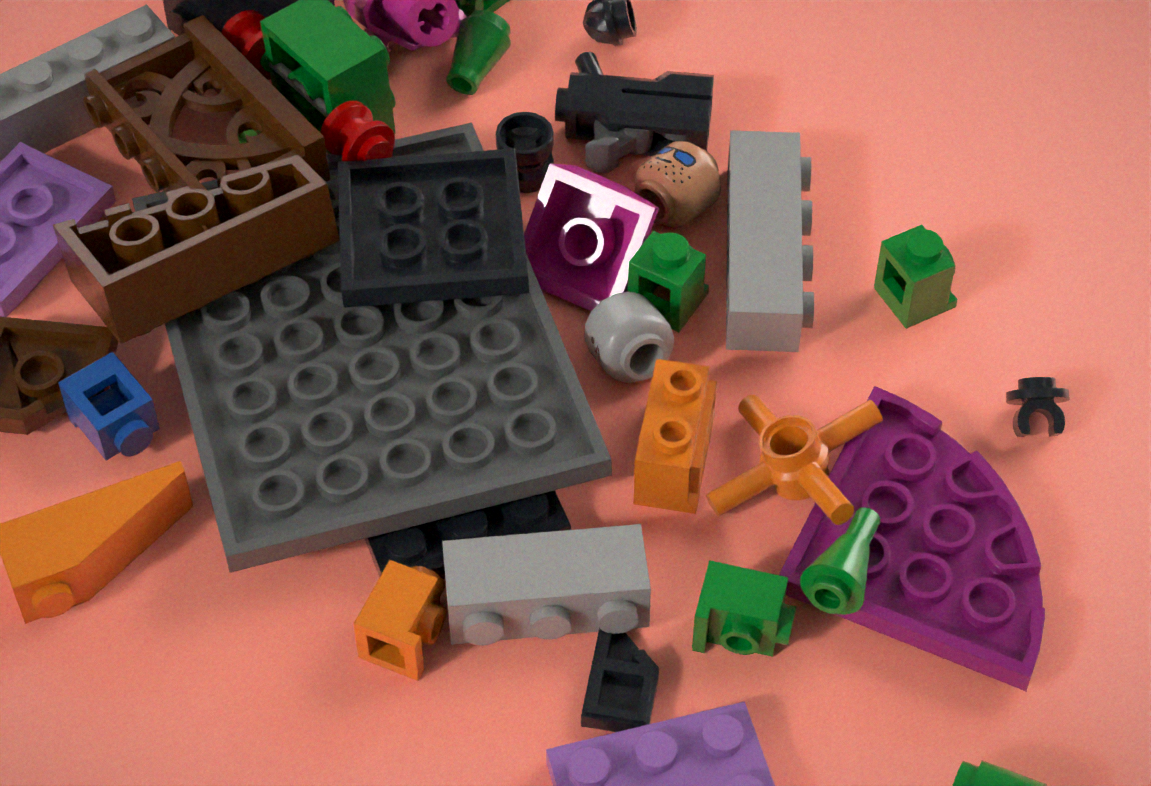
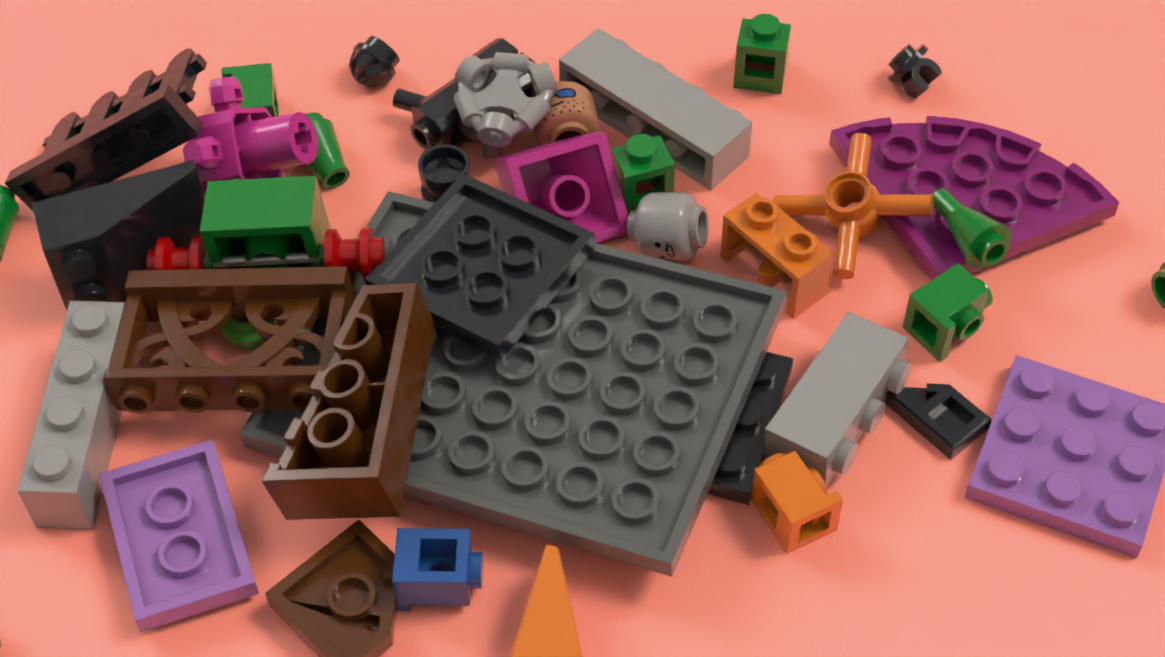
camera: 50 degrees left, 0 degrees up
(642, 104) = (491, 108): none -> light grey piece

